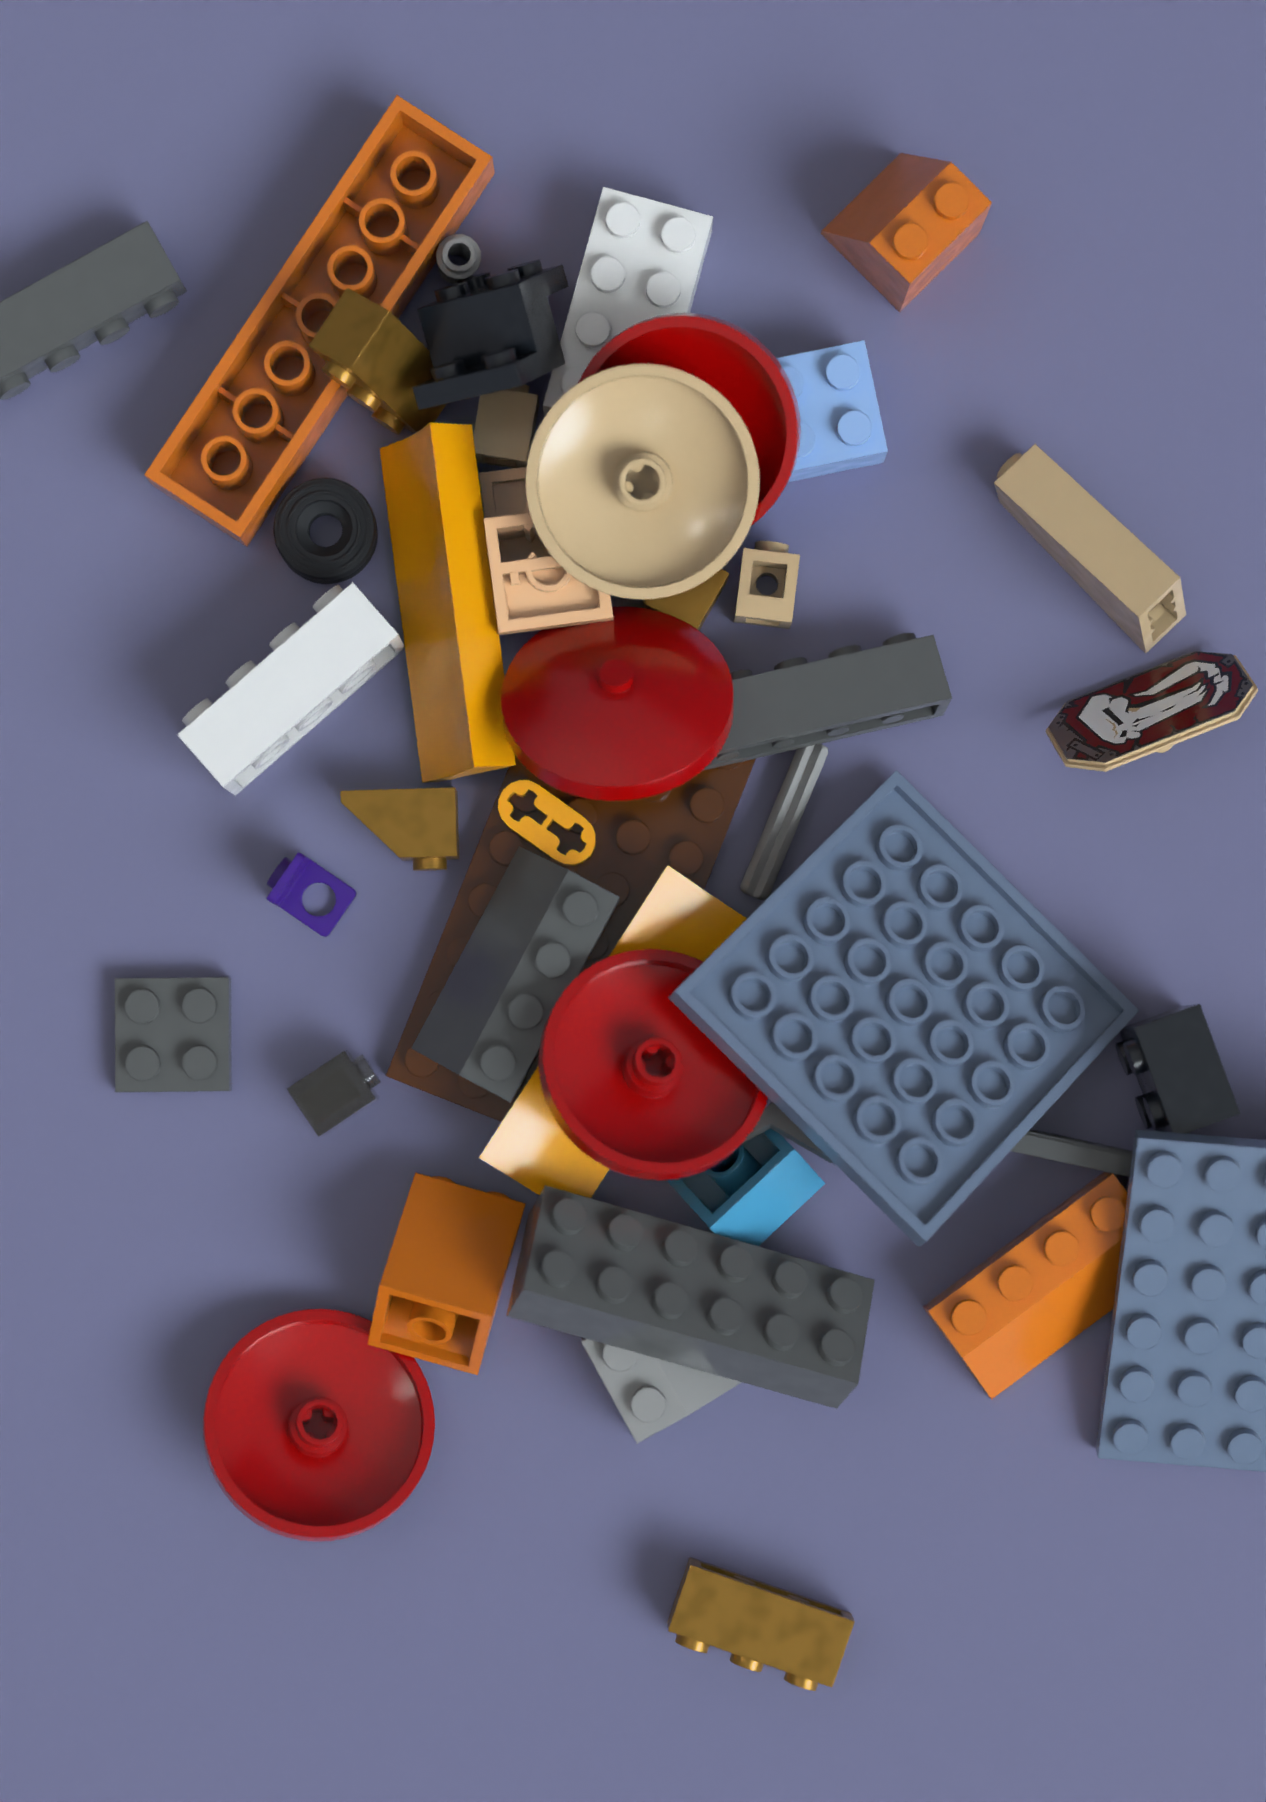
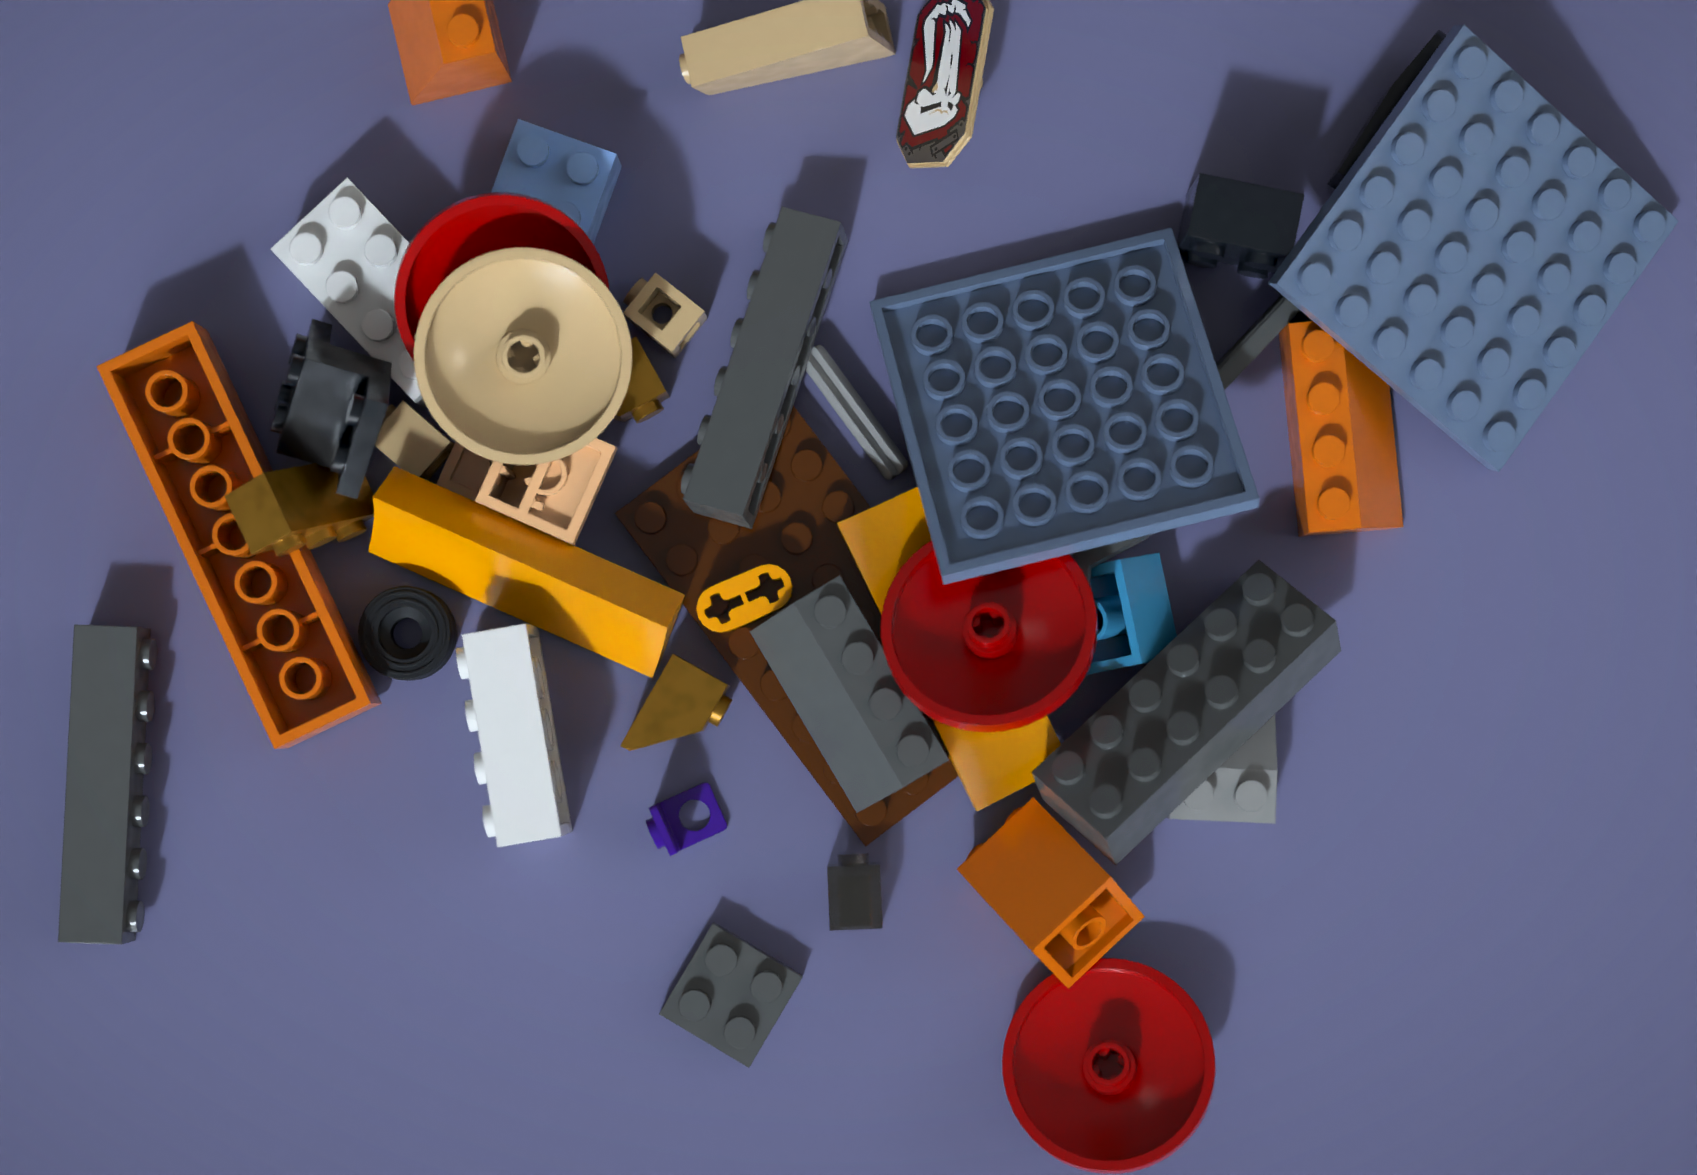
camera: 55 degrees left, 0 degrees up
(462, 246) = (249, 389): light grey pin -> none
(618, 705) = (688, 484): red dish -> none
(759, 1625) = (1471, 813): pearl gold brick -> none

